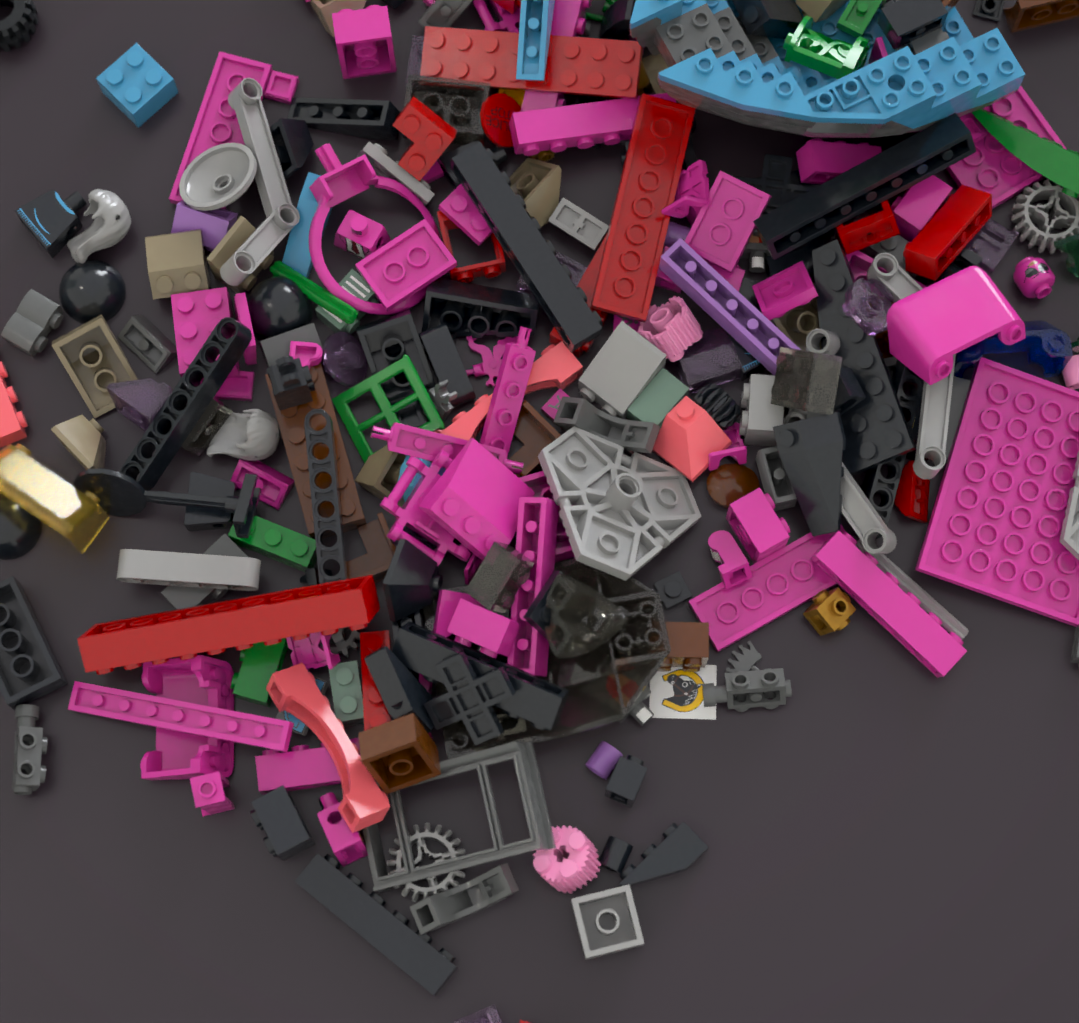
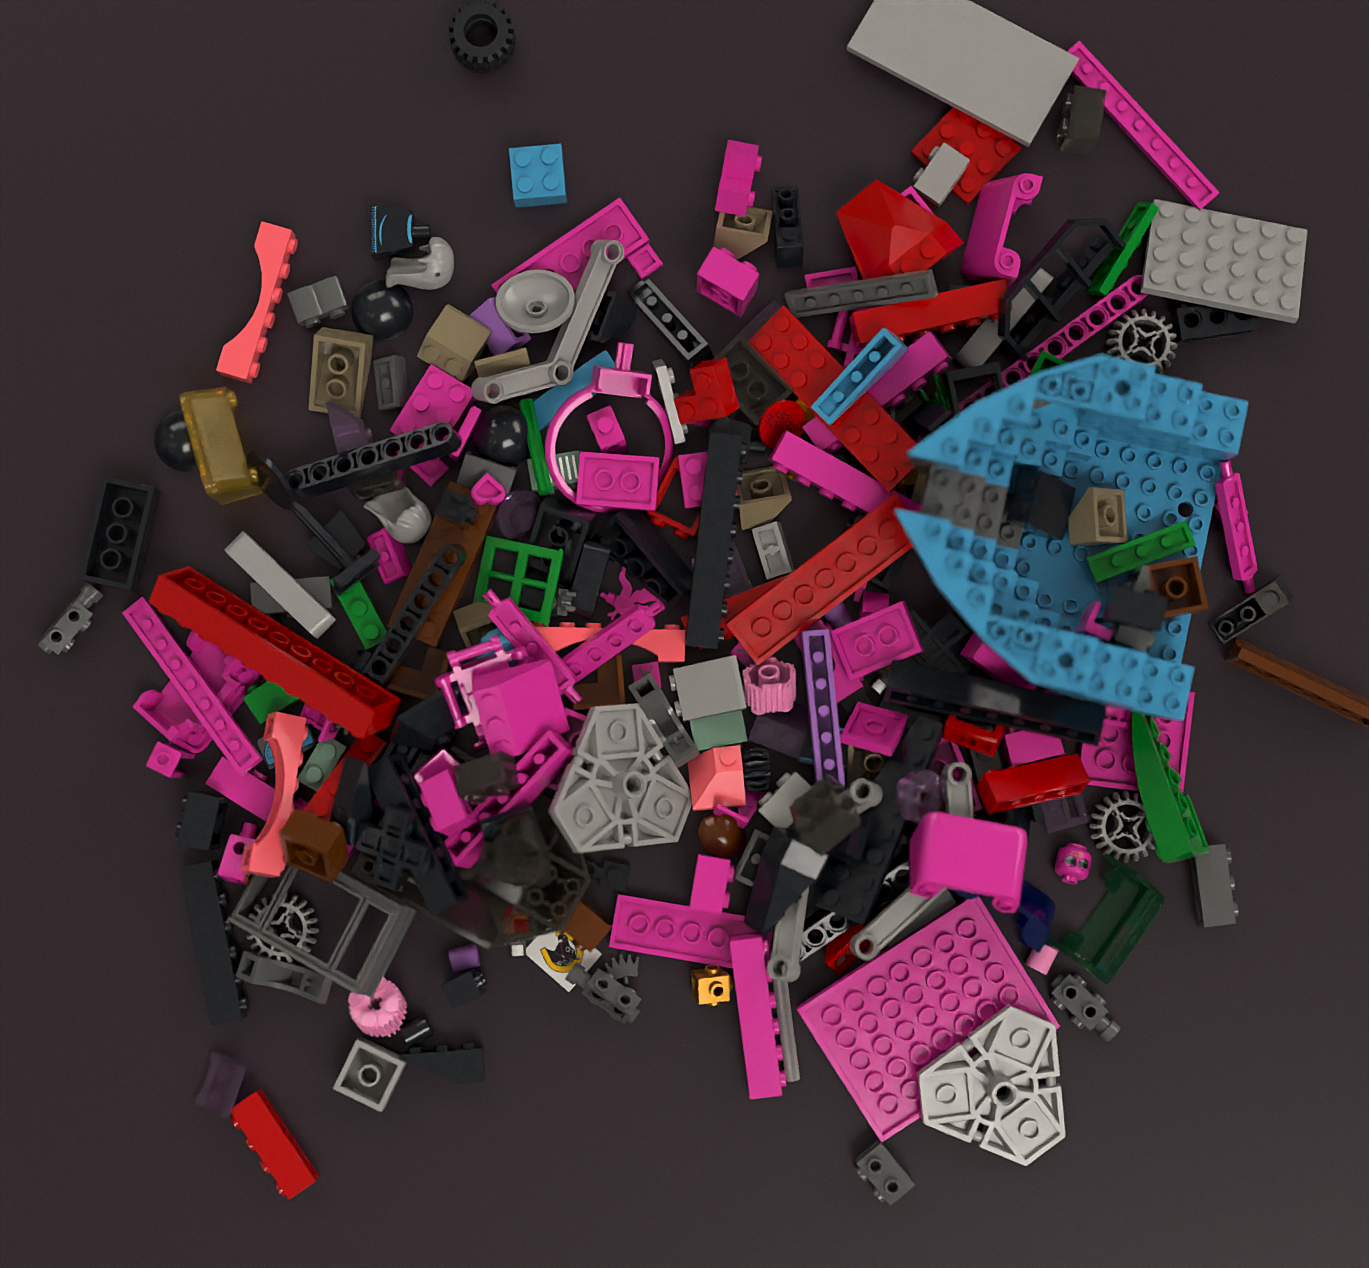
camera: 35 degrees right, 10 degrees up
(83, 441) = (282, 427): dark tan slope -> none
(691, 183) = (874, 591): dark pink piece -> none
(734, 565) = (674, 881): dark pink leg -> none
(823, 53) = (1048, 566): green fence -> none

